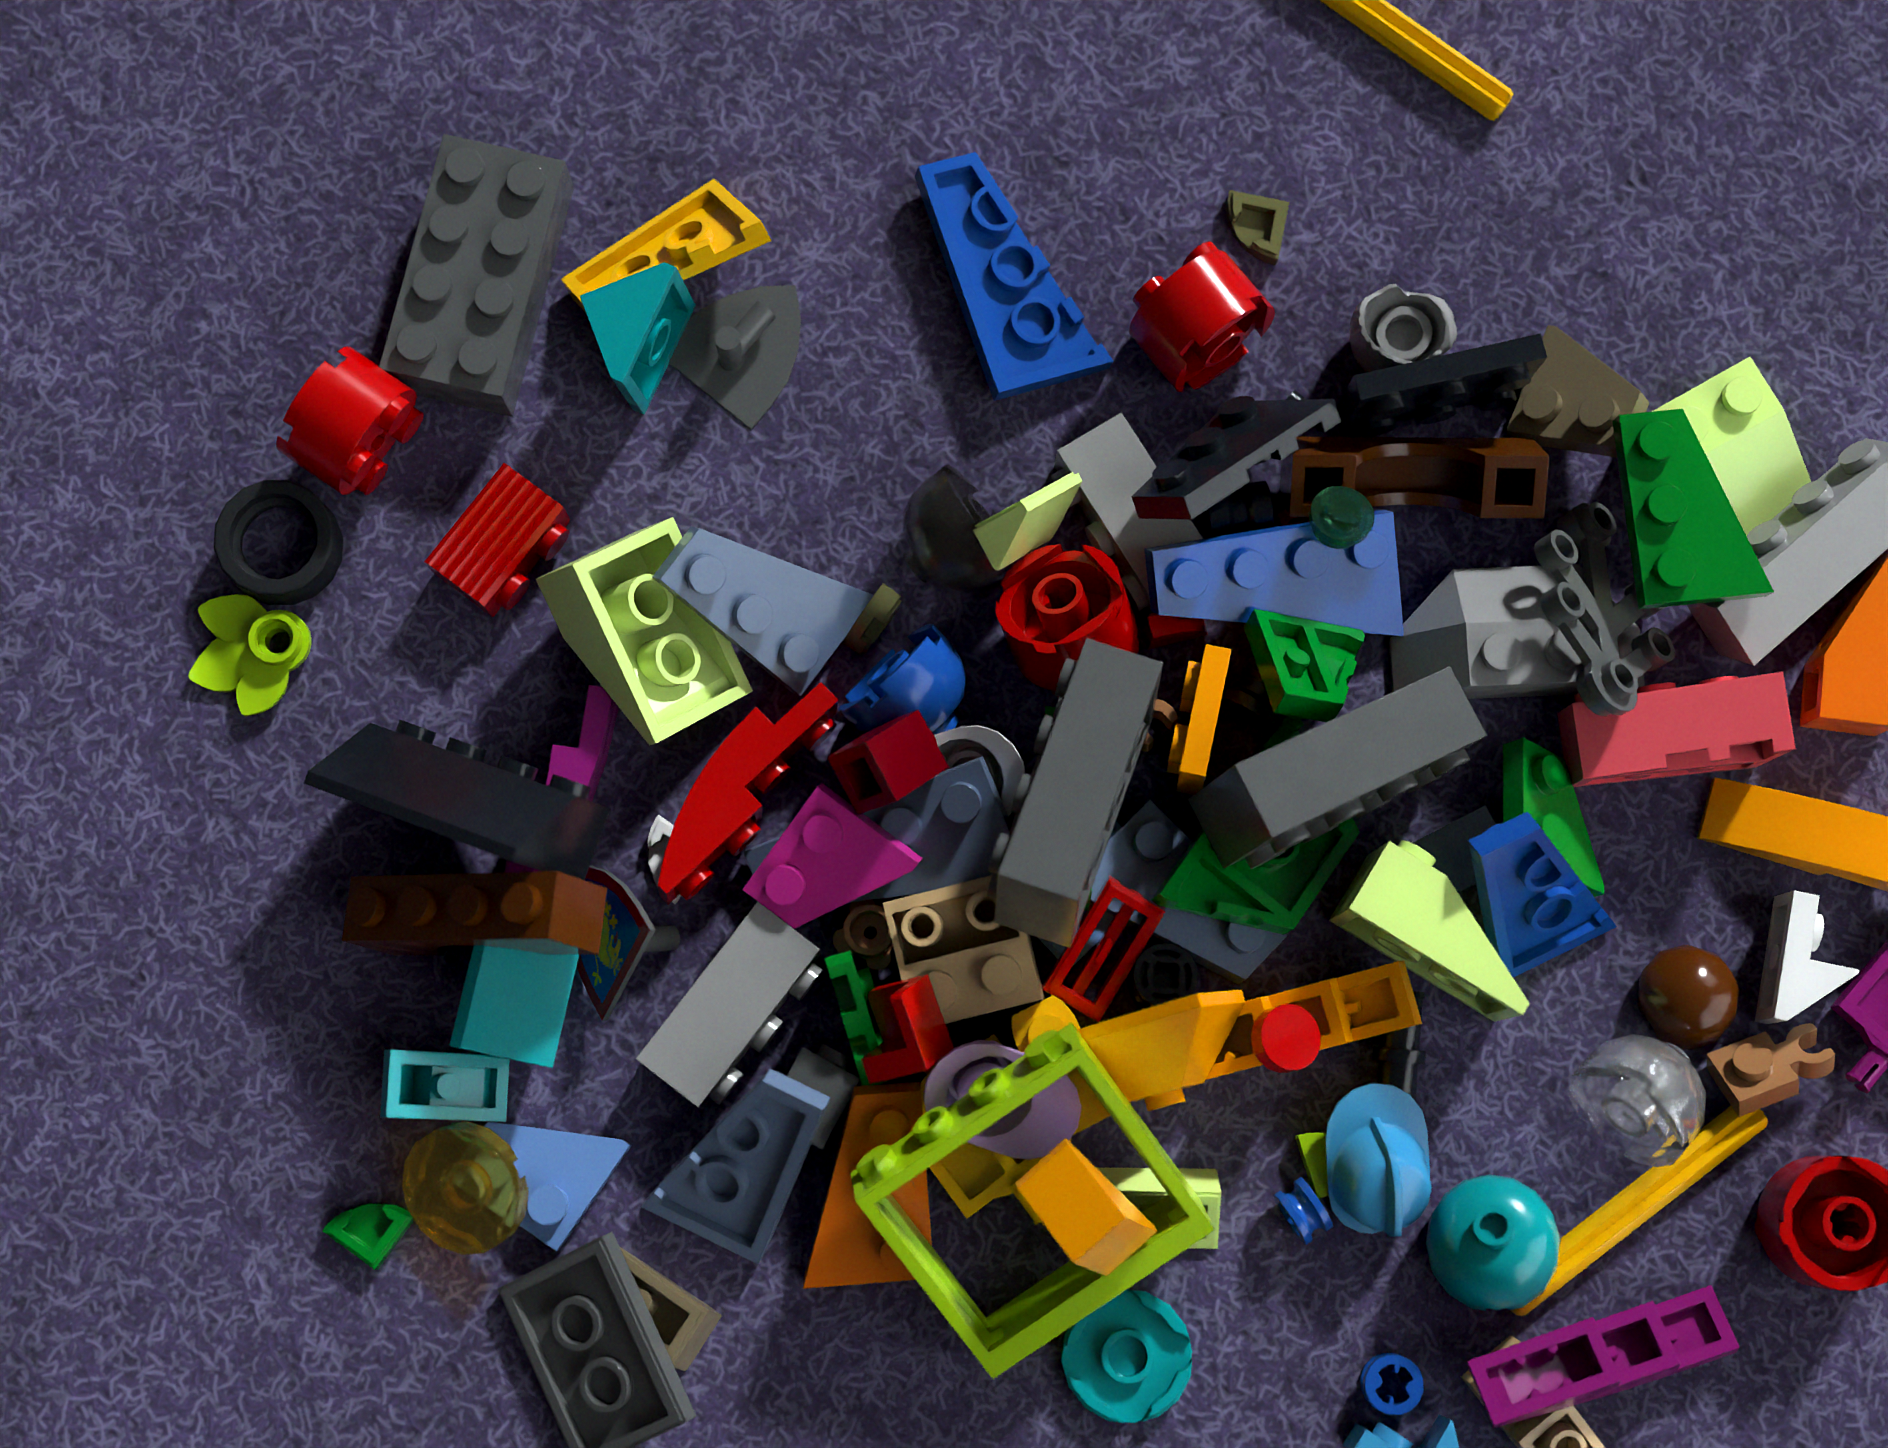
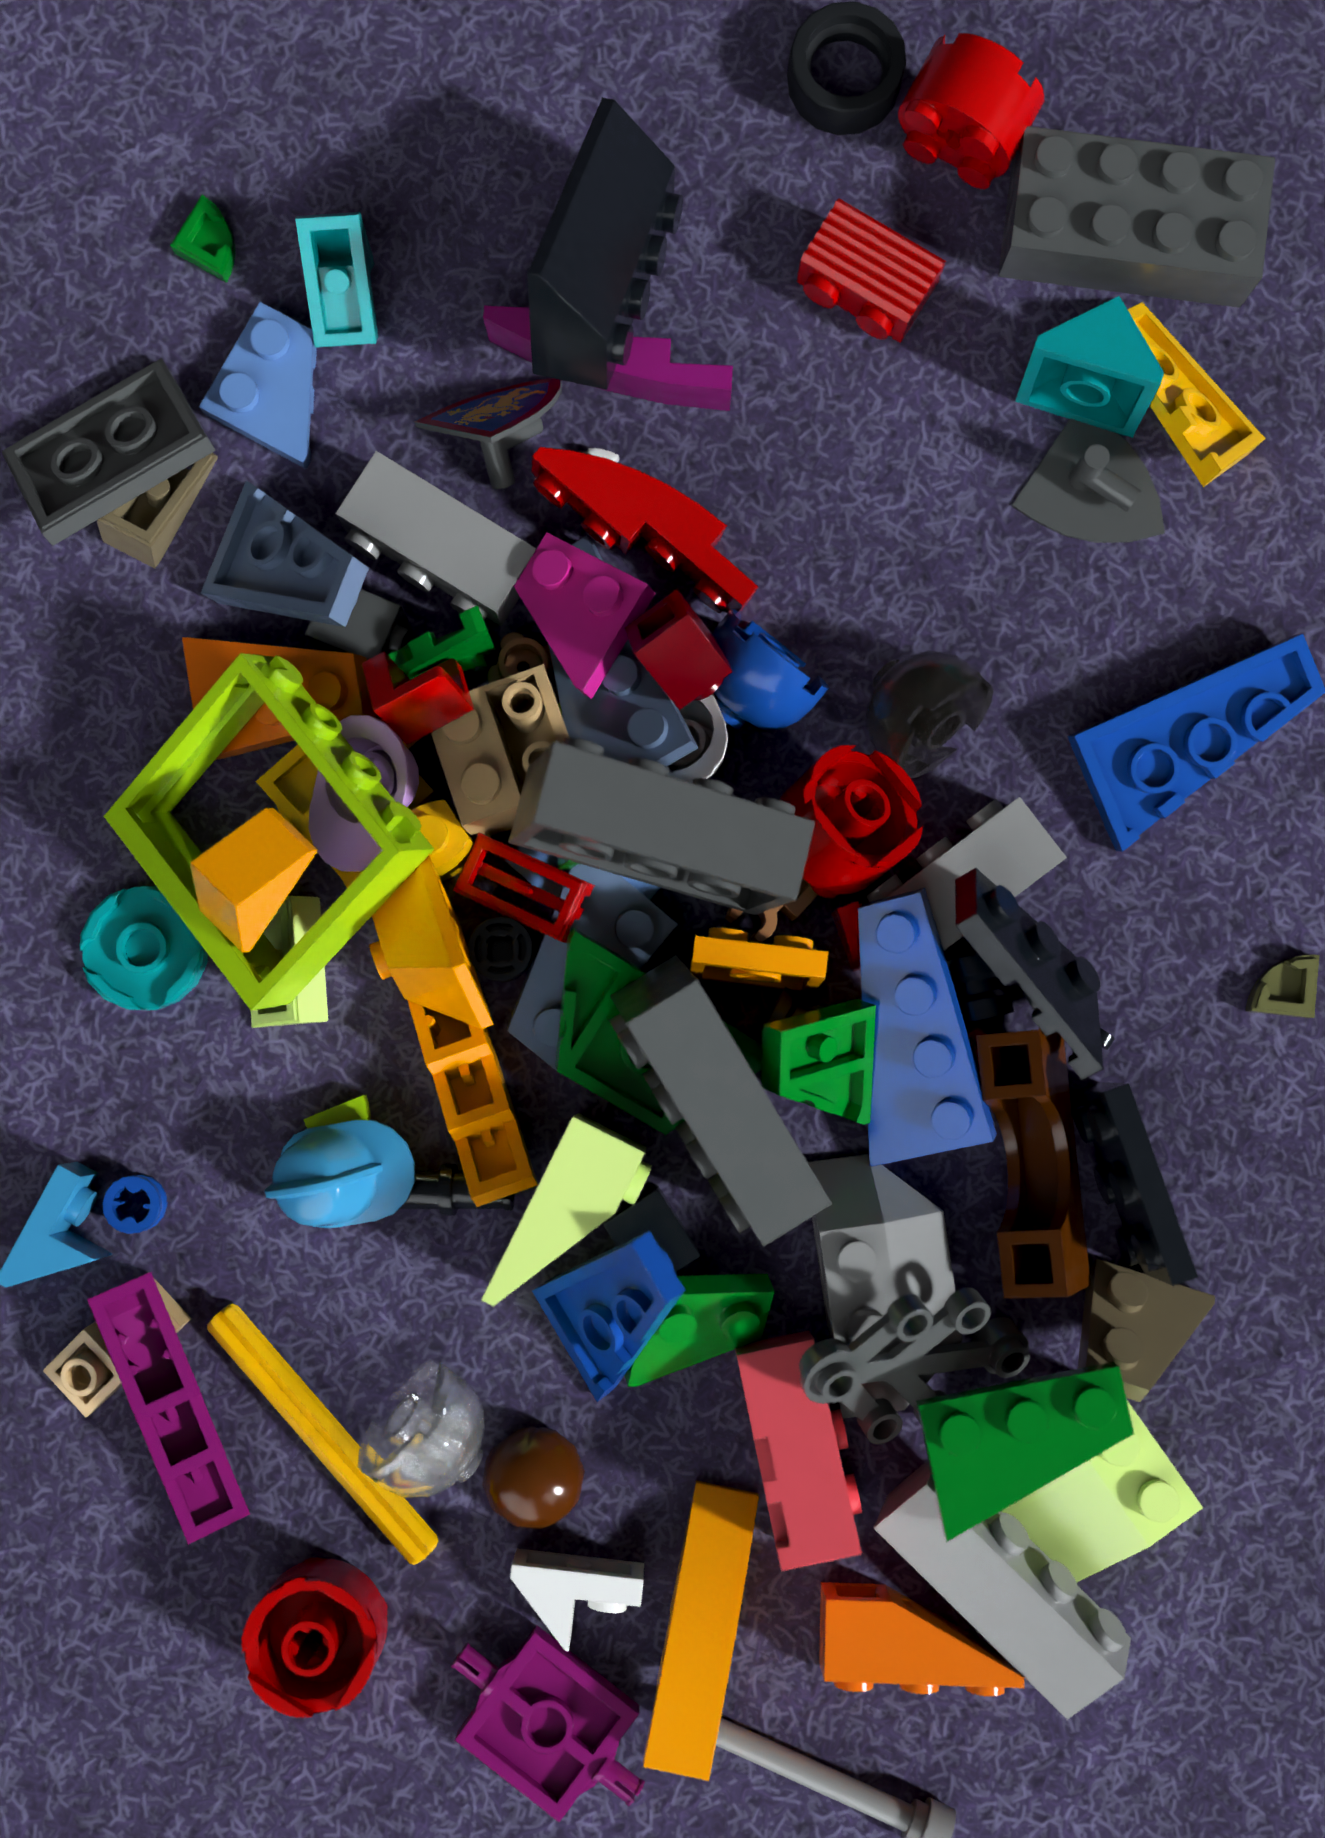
camera: 90 degrees right, 5 degrees up
(242, 653) = (736, 53): lime plate -> none
(464, 1188) = (245, 311): clear yellow tile -> none
(503, 909) = (492, 277): reddish brown arch -> none
(514, 1004) = (426, 324): teal slope -> none
(639, 638) = (791, 416): yellowish green slope -> none
(763, 605) = (831, 525): sand blue wing -> none
(886, 605) = (840, 646): olive tile -> none
(1026, 523) = (938, 768): yellowish green slope -> none
(1199, 318) = (1176, 928): red brick -> none
(1285, 1038) = (446, 1069): red tile -> none
(1303, 1210) = (289, 1104): blue bush -> none
(1341, 517) = (979, 1083): clear green plate -> none
(1400, 328) = (1191, 1140): light grey hair -> none
(1493, 1243) = (271, 1293): teal cylinder -> none
(1762, 1073) = (461, 1556): medium nougat plate -> none

